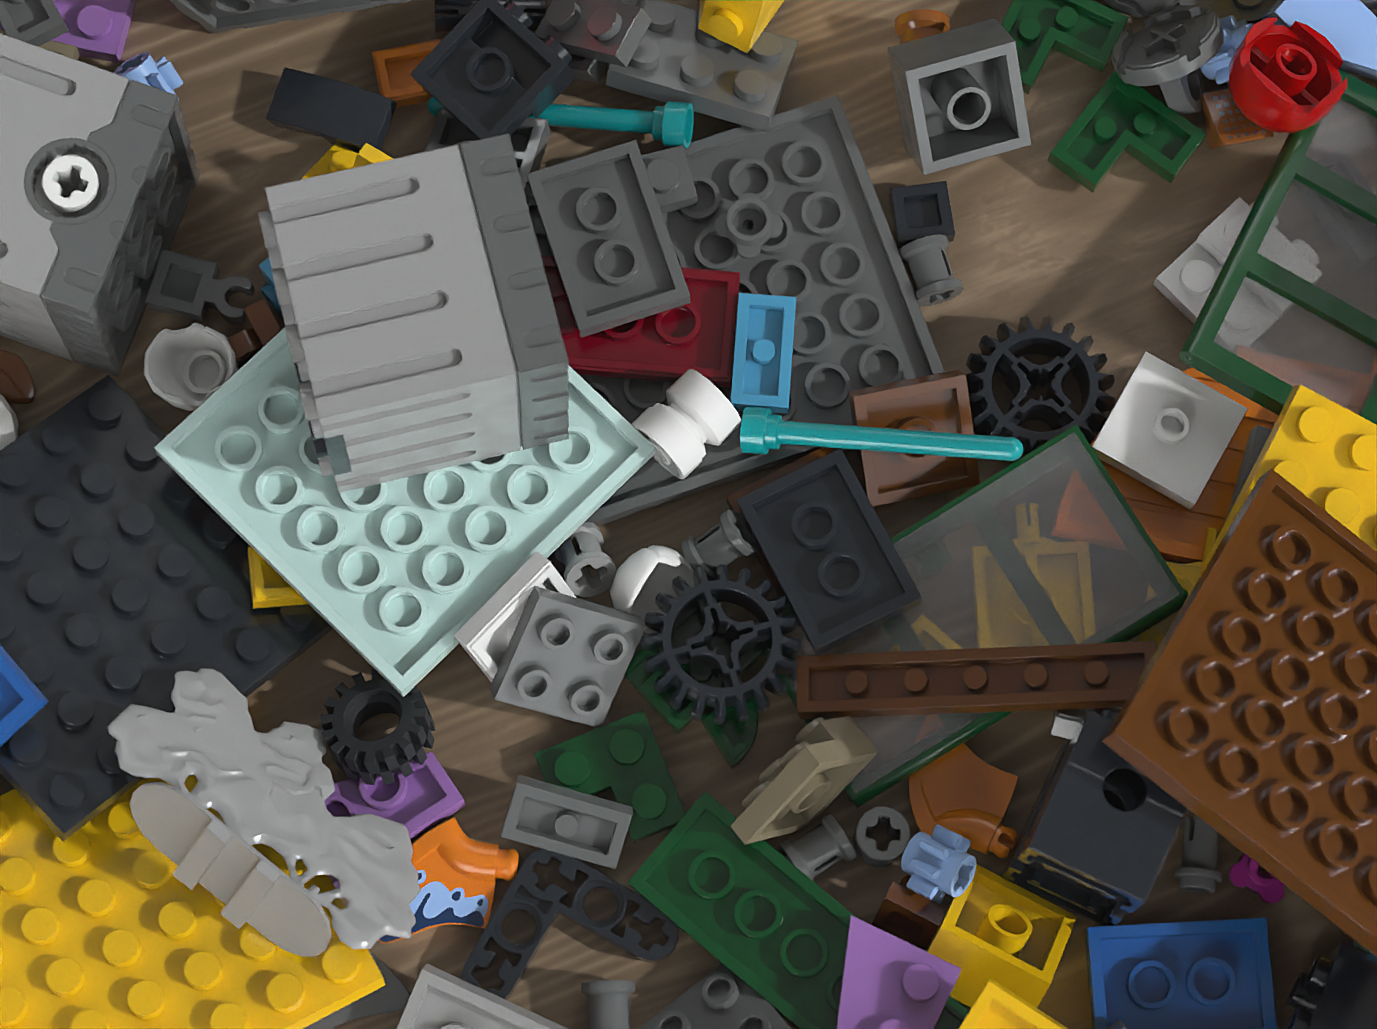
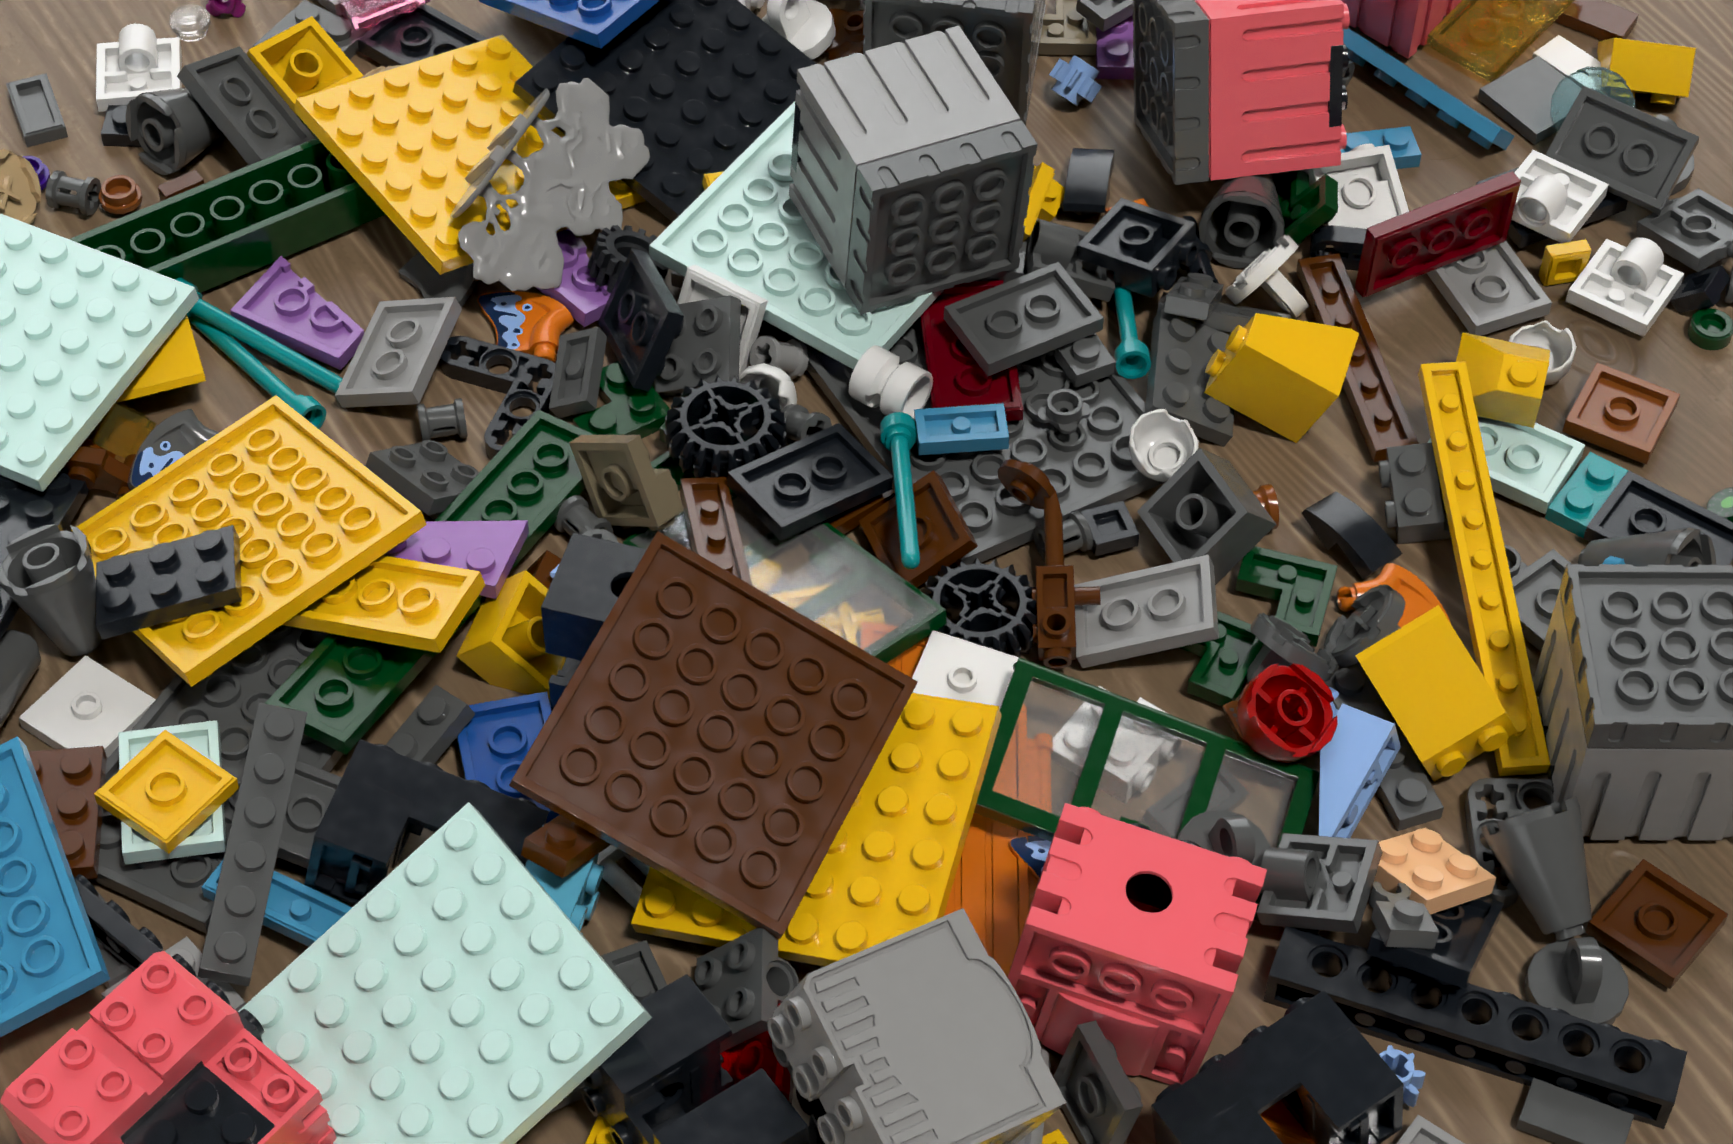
camera: 80 degrees right, 25 degrees down
(518, 723) = (641, 320): none -> black plate
(843, 119) = (1161, 444): none -> white hair
(1021, 292) = (1054, 581): none -> reddish brown piece
(1077, 198) = (1148, 612): none -> light grey plate

